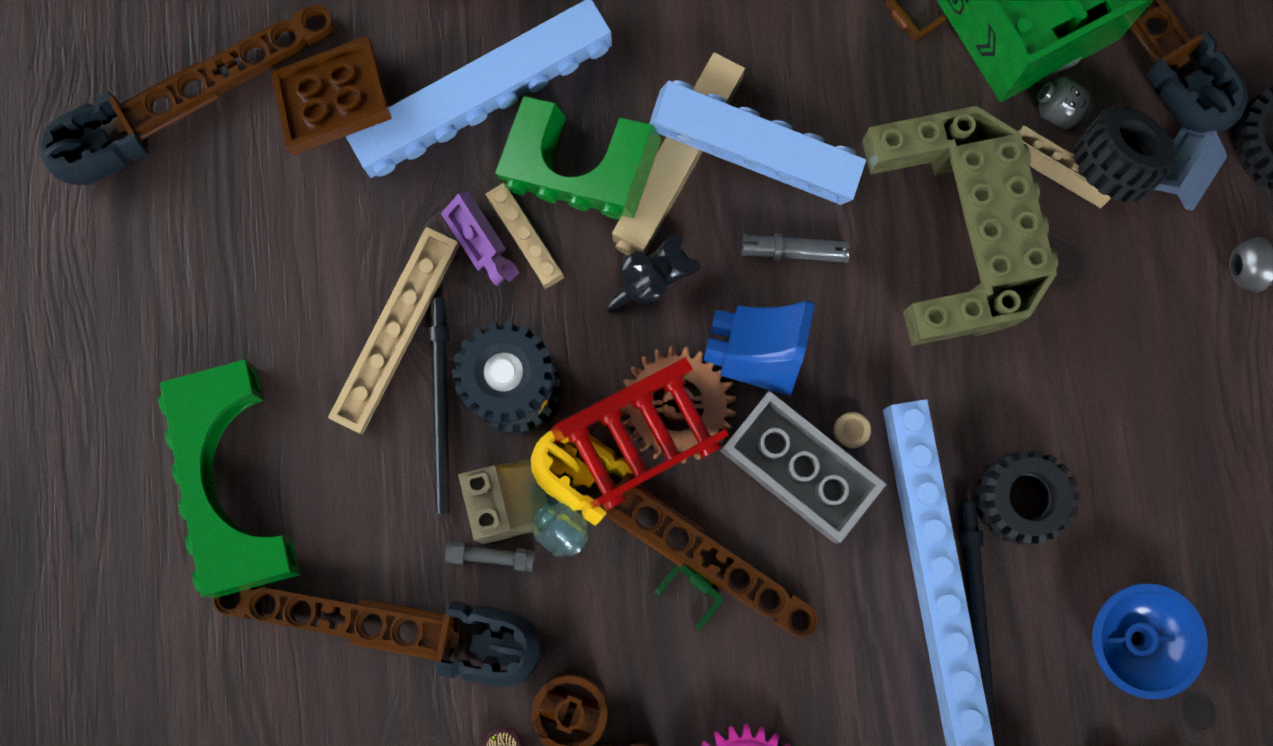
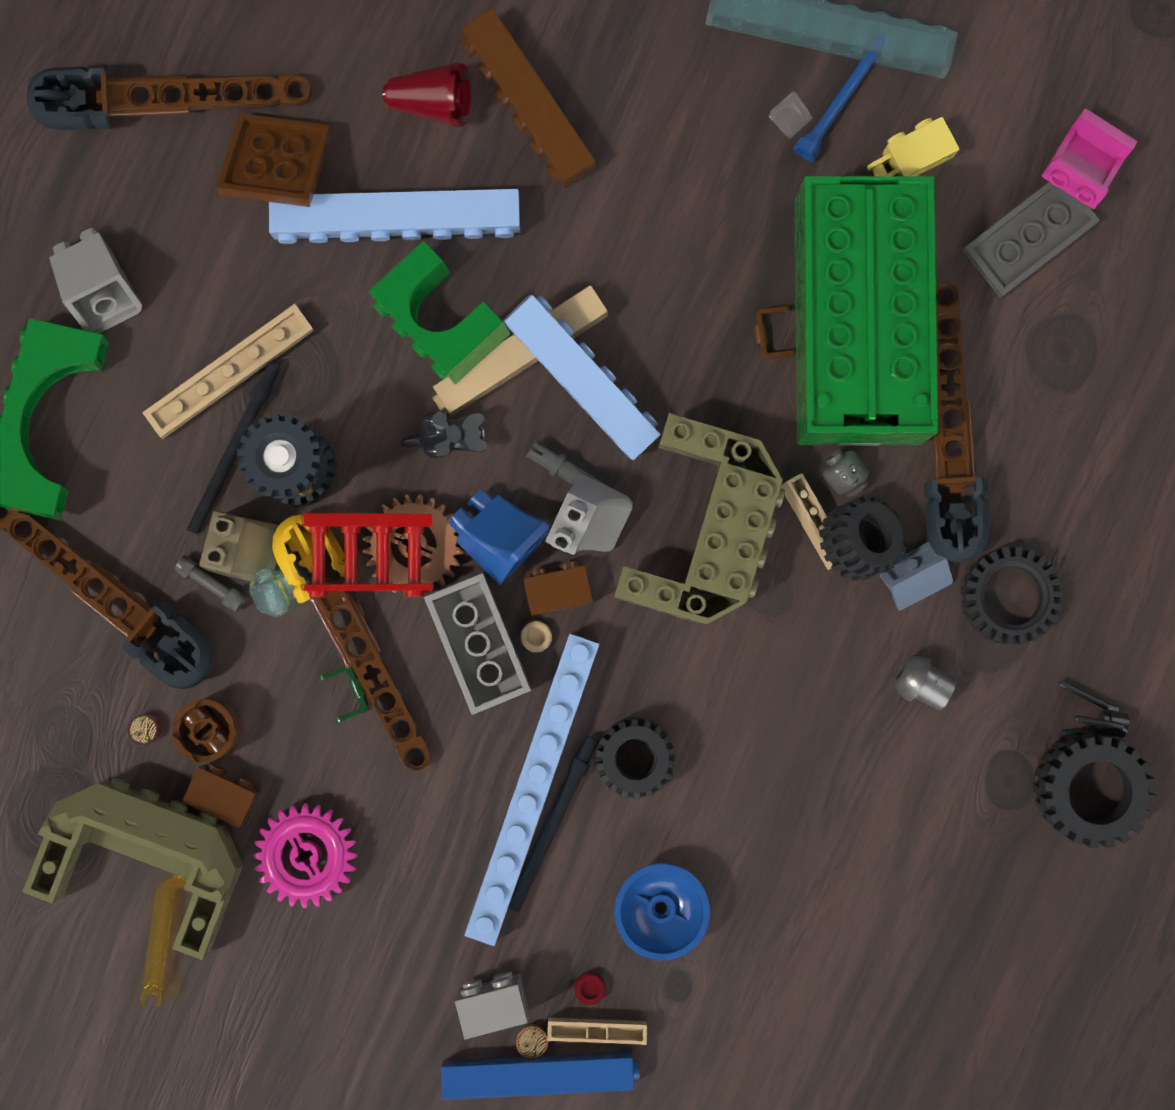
camera: 25 degrees right, 5 degrees up
(209, 313) = (93, 283): none -> light grey hips
(478, 238) = (330, 334): medium lavender plate -> none
(525, 236) = (367, 351): tan piece -> none
(842, 278) = (589, 517): none -> light grey hips
(849, 370) = (557, 589): none -> reddish brown brick

